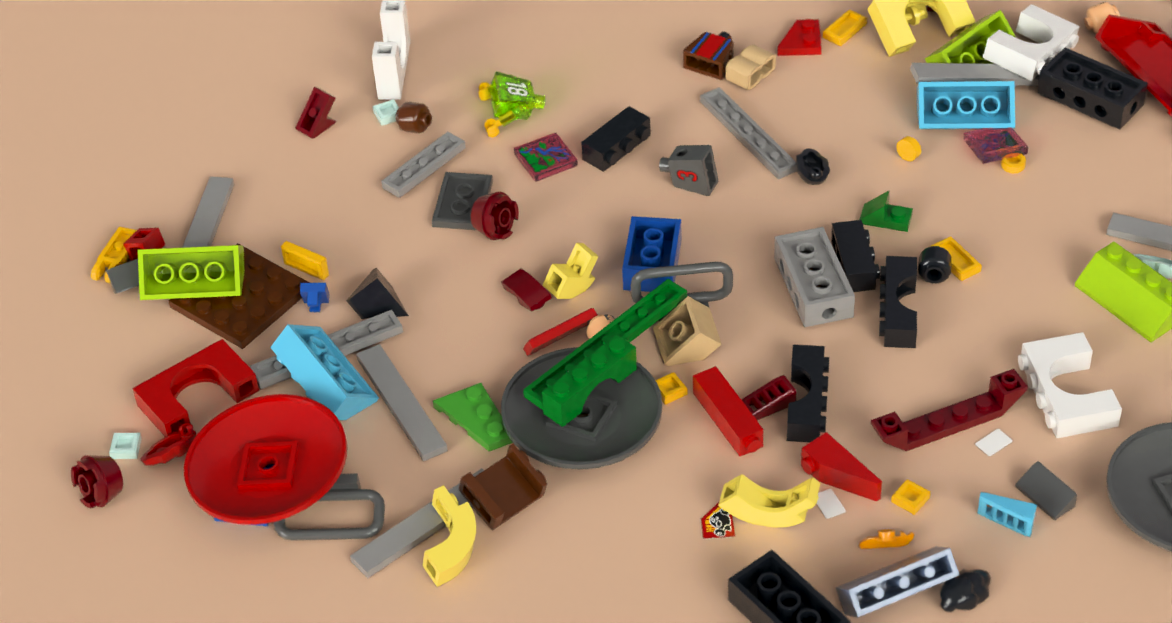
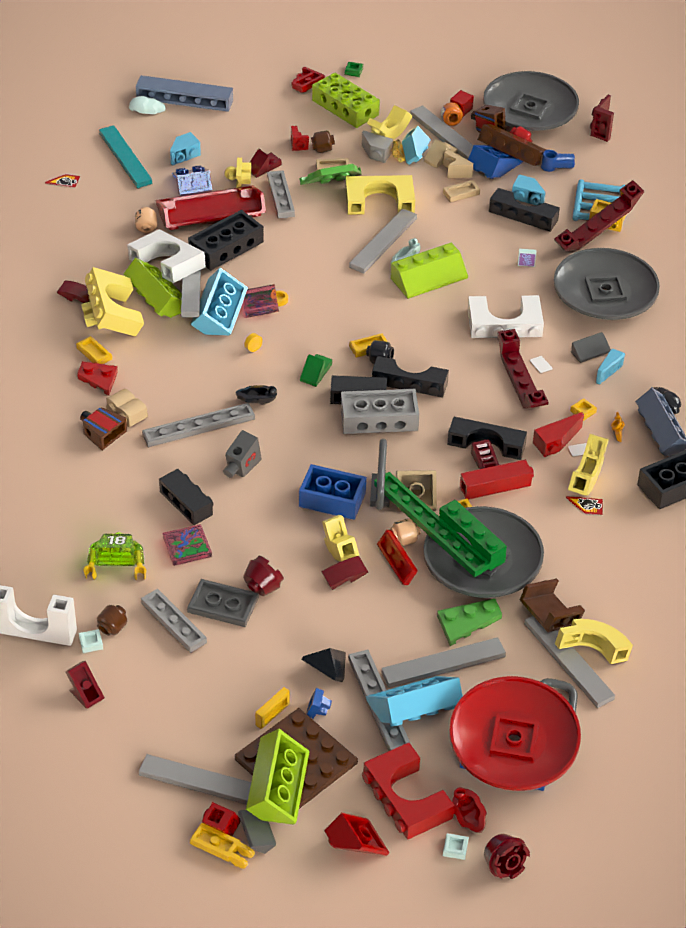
camera: 85 degrees left, 0 degrees up
(126, 356) = (355, 834): none -> red slope

